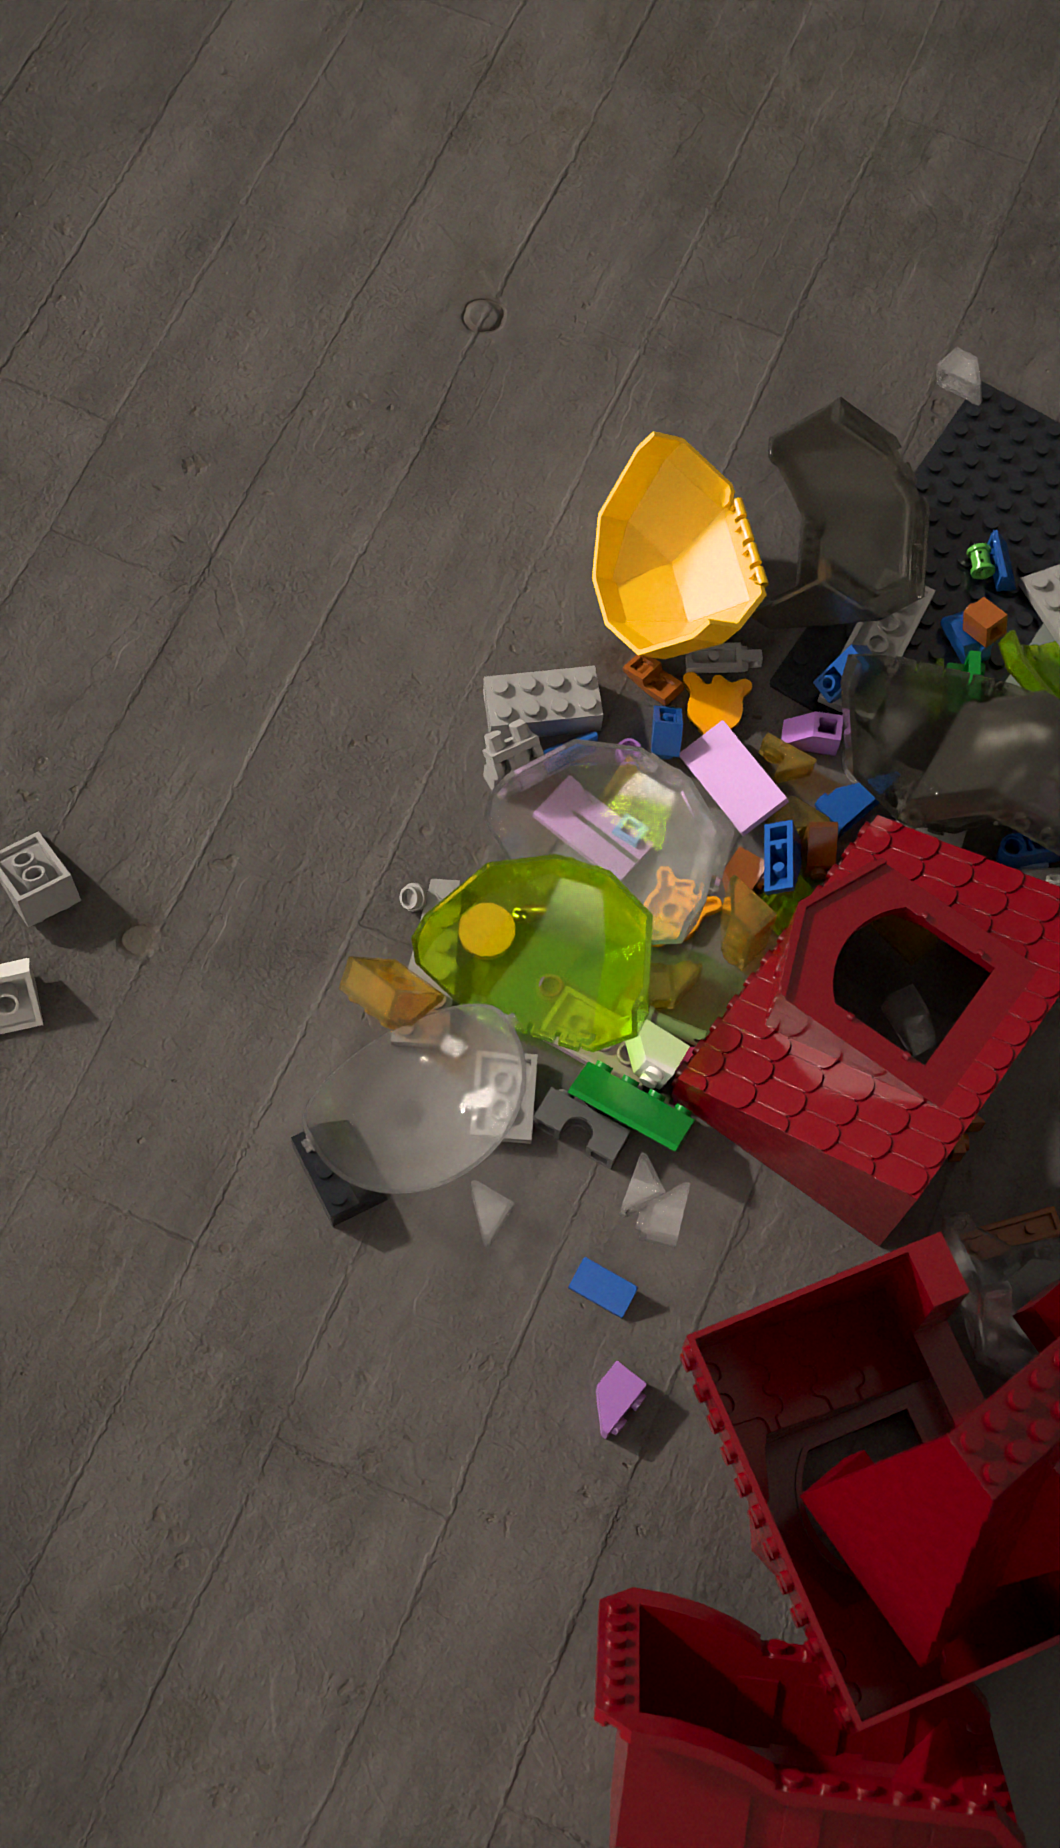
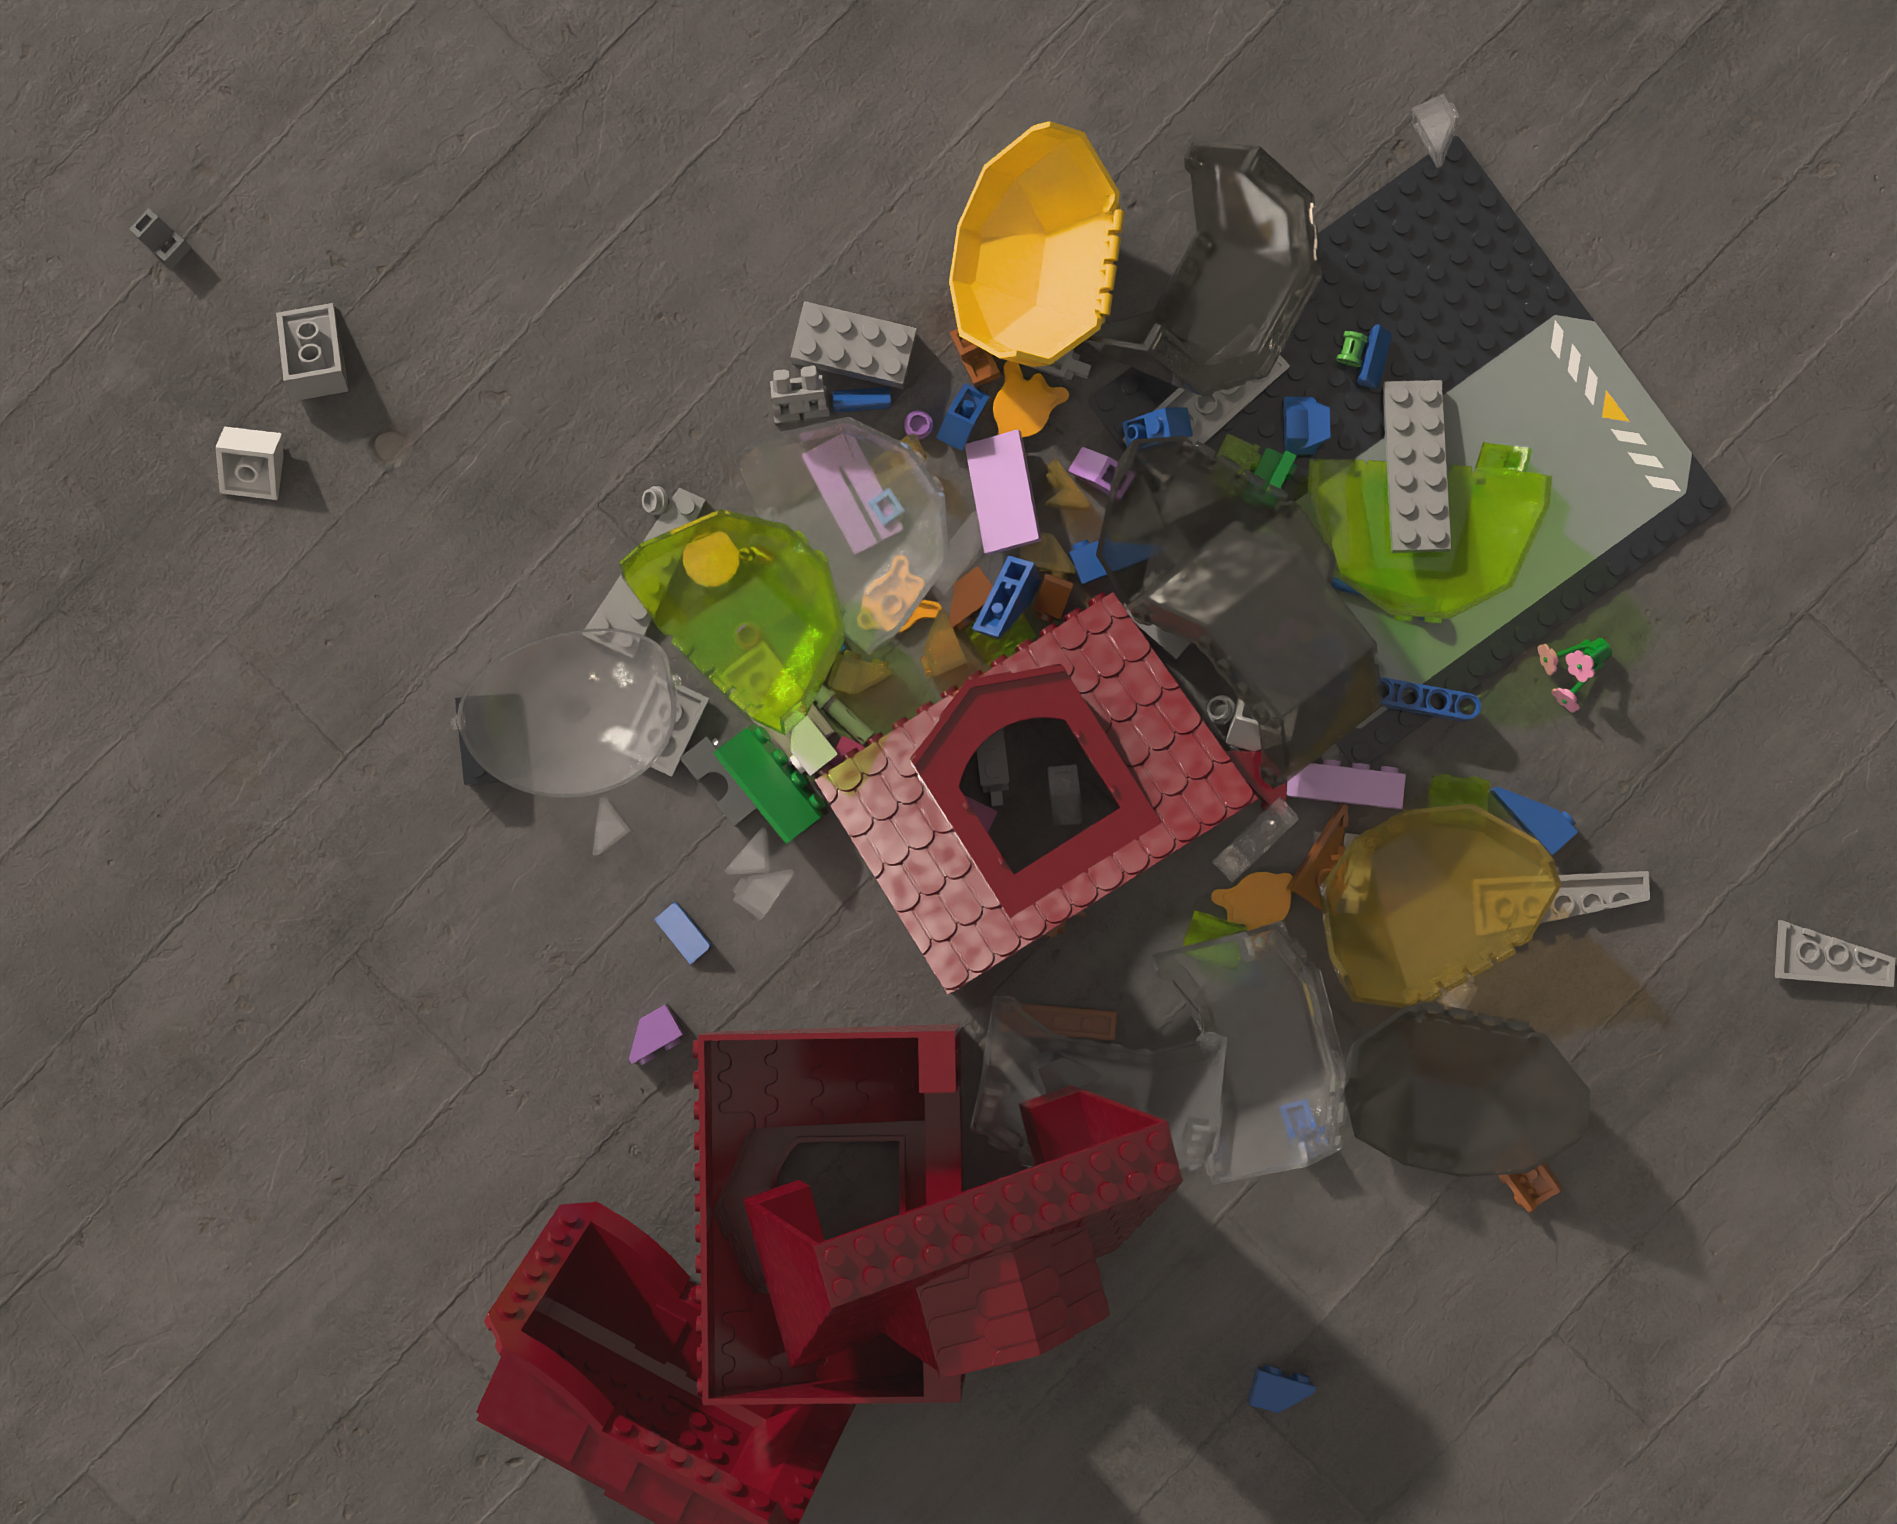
camera: 25 degrees right, 20 degrees up
(388, 991) = (593, 591): clear yellow slope -> none
(984, 622) = (1315, 424): dark orange brick -> none

